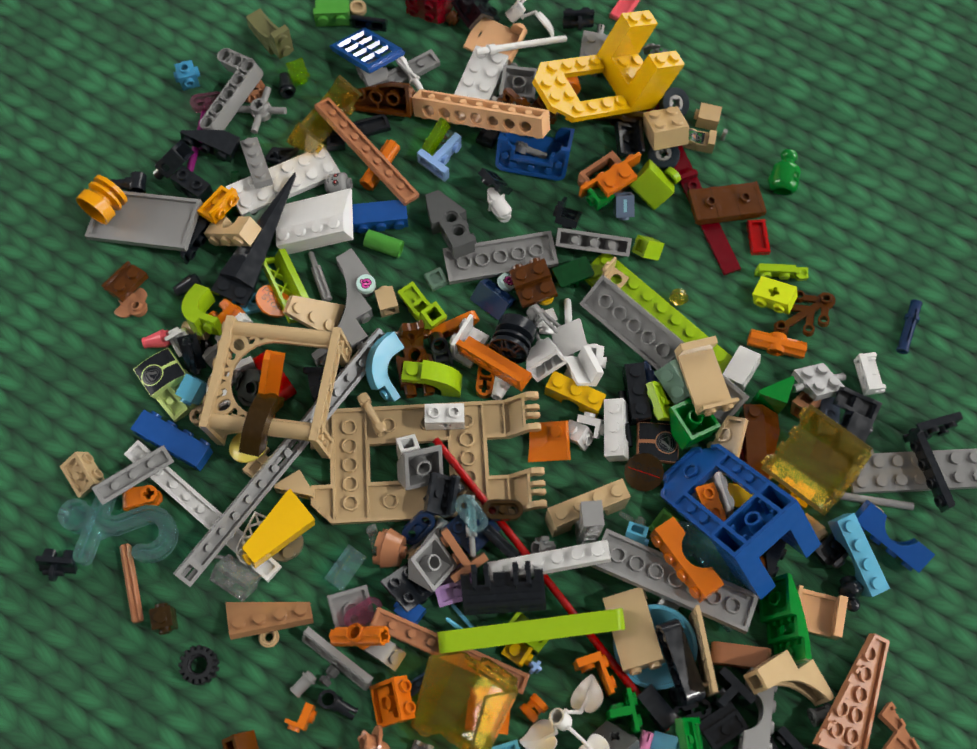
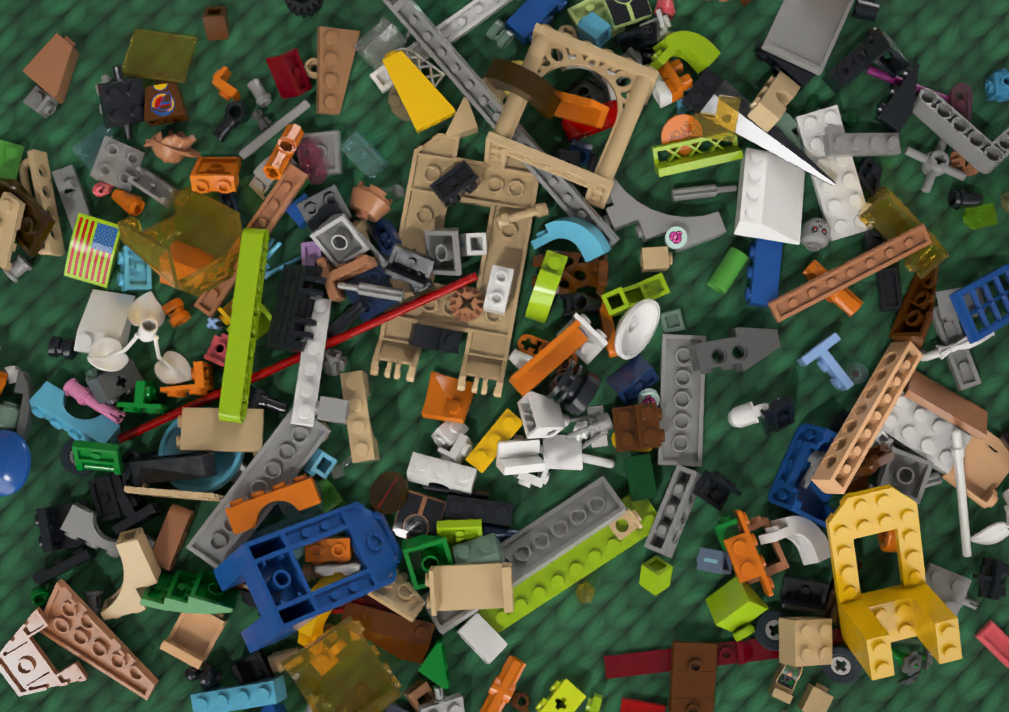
camera: 105 degrees right, 15 degrees up
(186, 284) = (724, 45): black cone -> none
(211, 468) = (500, 34): none -> sand green wheel
(218, 204) = (811, 91): light orange bracket -> none
(261, 266) = (723, 124): none -> clear yellow tile
(280, 656) = (289, 74): none -> dark red panel
(302, 381) = (584, 148): none -> dark blue plate
(314, 313) = (652, 176): tan wing -> none
(357, 475) = (455, 183): none -> black bracket
(436, 136) = (853, 360): clear neon green tile -> none
(450, 301) = (636, 328): none -> white dish
(455, 65) = (947, 404): none -> nougat tile
(463, 451) = (468, 293): none -> nougat gear
(472, 513) = (379, 290): clear light blue plate -> none
(500, 461) = (435, 339): none -> black arch
(501, 509) = (378, 326): dark brown plate -> none
(564, 661) = (212, 353): none -> coral brick
(585, 145) = (803, 533): none -> white arch
(594, 602) = (261, 400): none -> black pin
(657, 708) = (141, 434): black tile -> none

